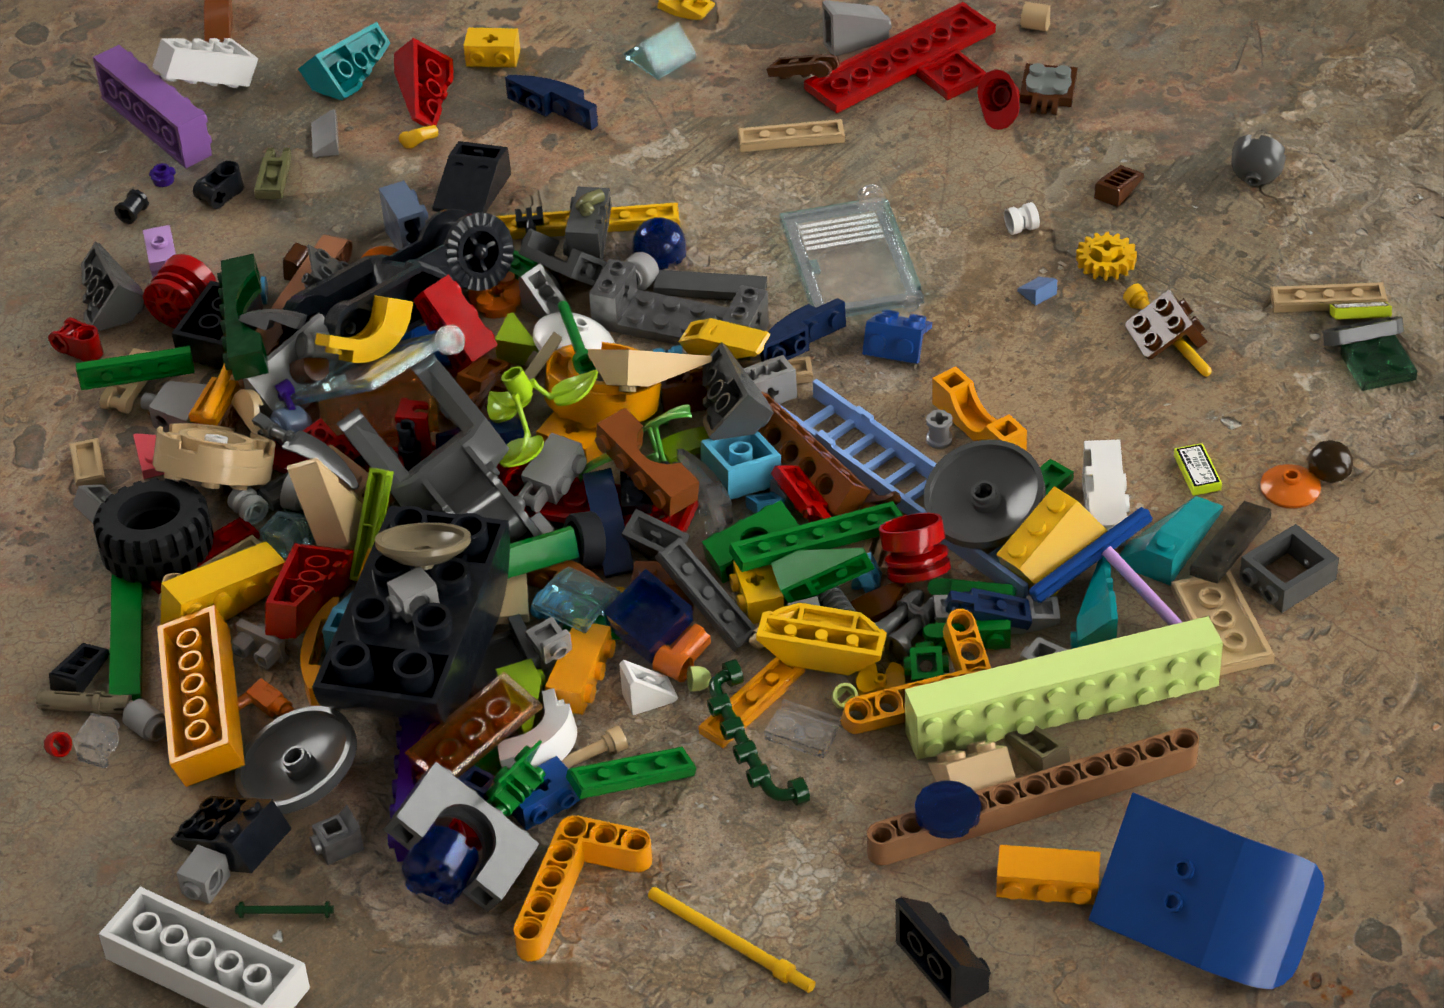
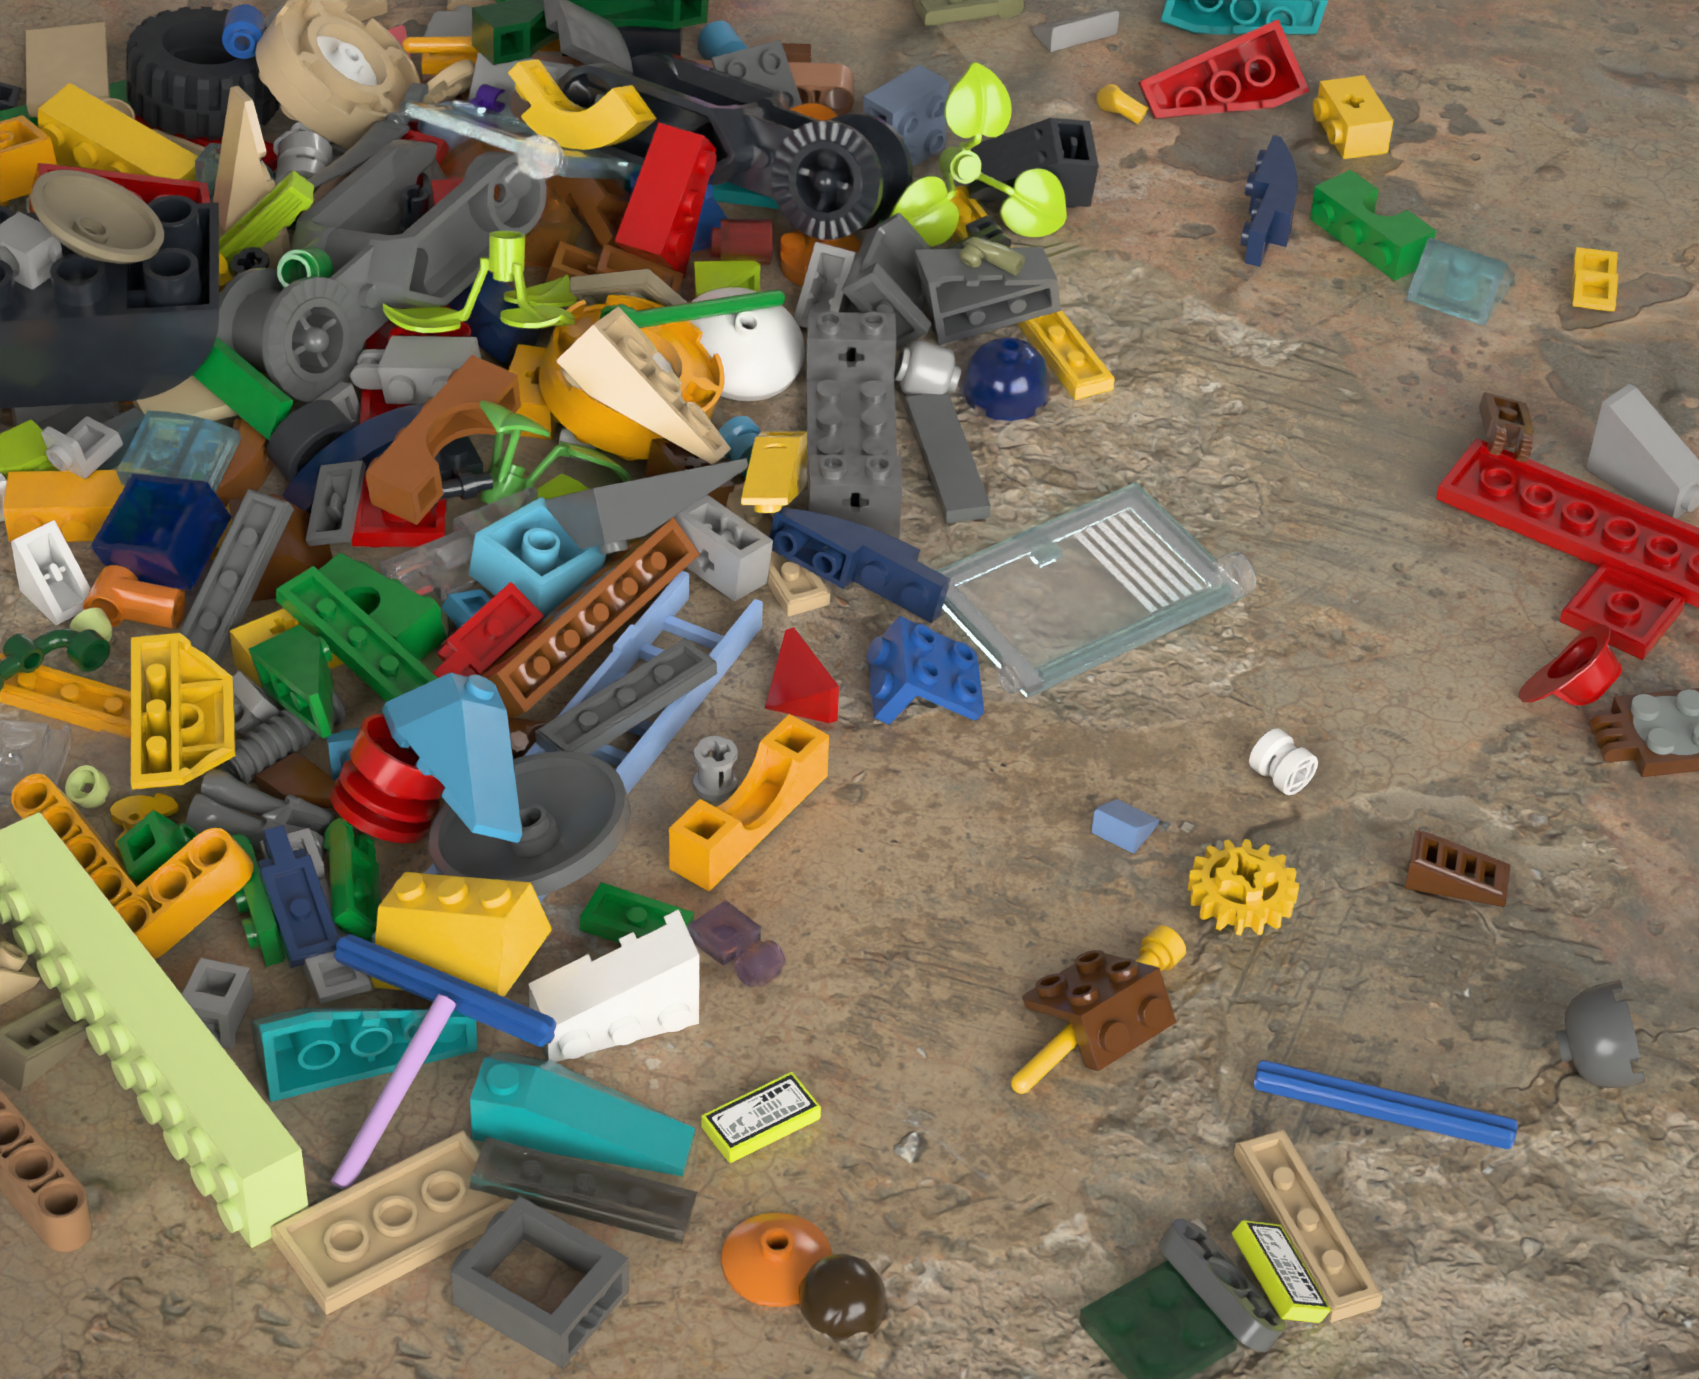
camera: 65 degrees right, 0 degrees up
(83, 611) = (66, 56): none -> tan tile
(161, 481) = (243, 30): none -> blue brick
(462, 488) = (303, 263): none -> green brick
(471, 203) = (978, 108): none -> lime plant
(494, 307) = (743, 240): none -> clear red brick
(616, 67) = (1347, 212): none -> green arch
(791, 135) = (1352, 463): tan tile -> none
(880, 381) = (802, 683): none -> red slope
(885, 446) = (628, 700): none -> dark grey tile
(910, 497) = (465, 744): none -> dark azure wedge
(1068, 450) = (730, 934): none -> plate
(1263, 251) = (1386, 1104): none -> blue axle

